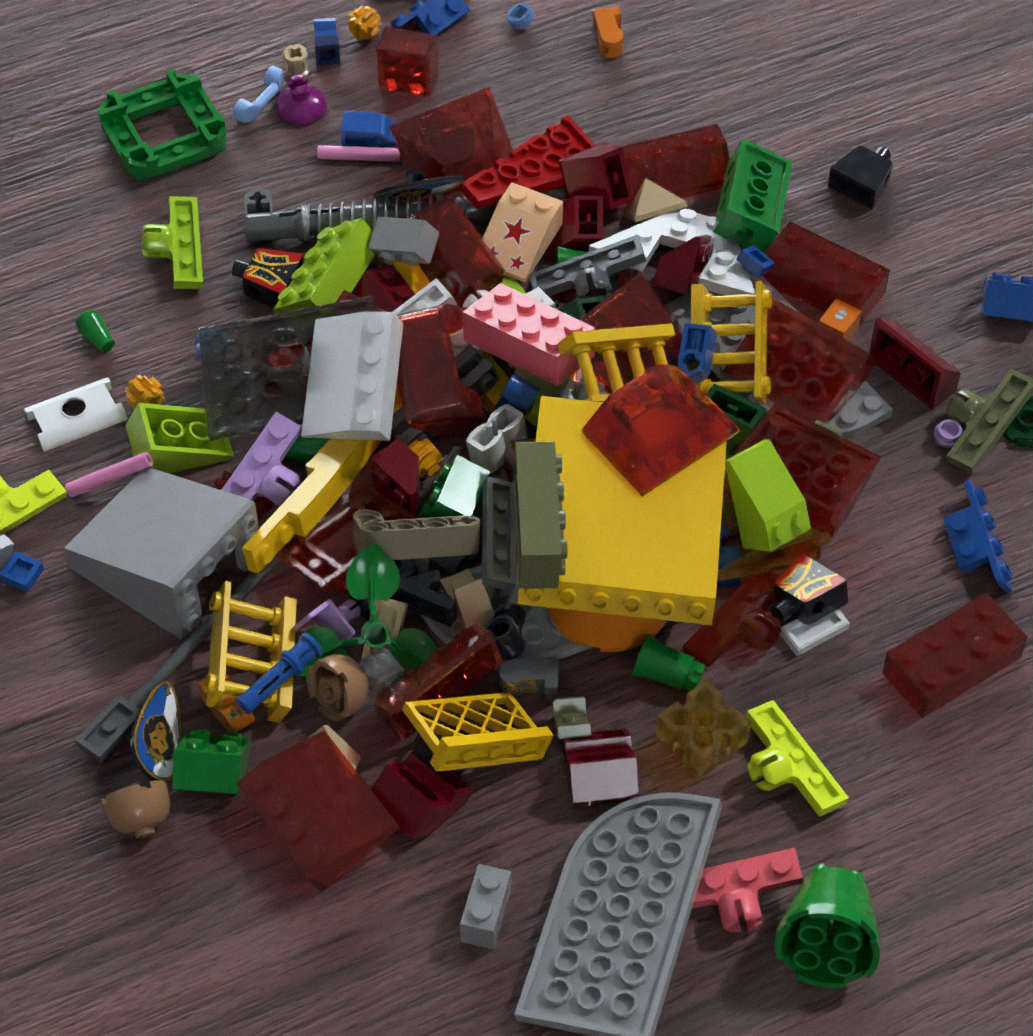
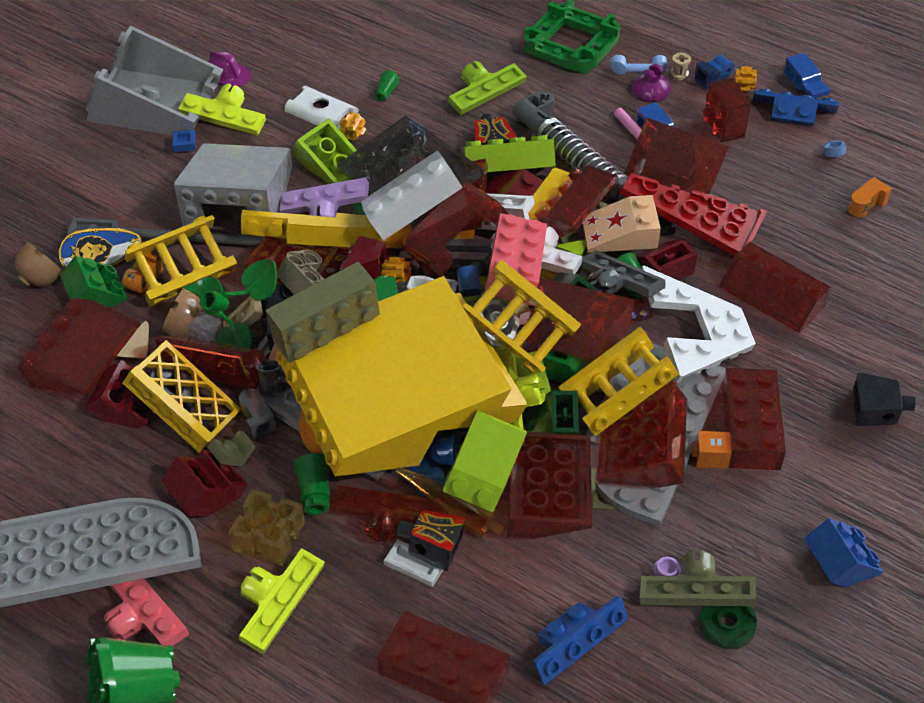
camera: 60 degrees right, 5 degrees down
(109, 474) = (276, 138): bright pink piece -> none
(293, 666) = (174, 278): blue pin -> none
(334, 618) = (233, 276): lavender bracket -> none
(403, 241) = (555, 170): light grey brick -> none
(421, 186) = (621, 164): shield -> none
(485, 906) = (51, 471): light grey brick -> none
(598, 173) = (714, 244): dark red slope -> none
(653, 201) = (732, 290): tan slope -> none
(657, 426) = (467, 350): clear red slope -> none
(683, 265) = (674, 322): dark red slope -> none
(699, 346) = (578, 365): blue piece -> none
(753, 196) = (780, 336): green brick -> none
(755, 261) = (714, 363): blue plate -> none
(912, 363) = (715, 510): dark red slope -> none

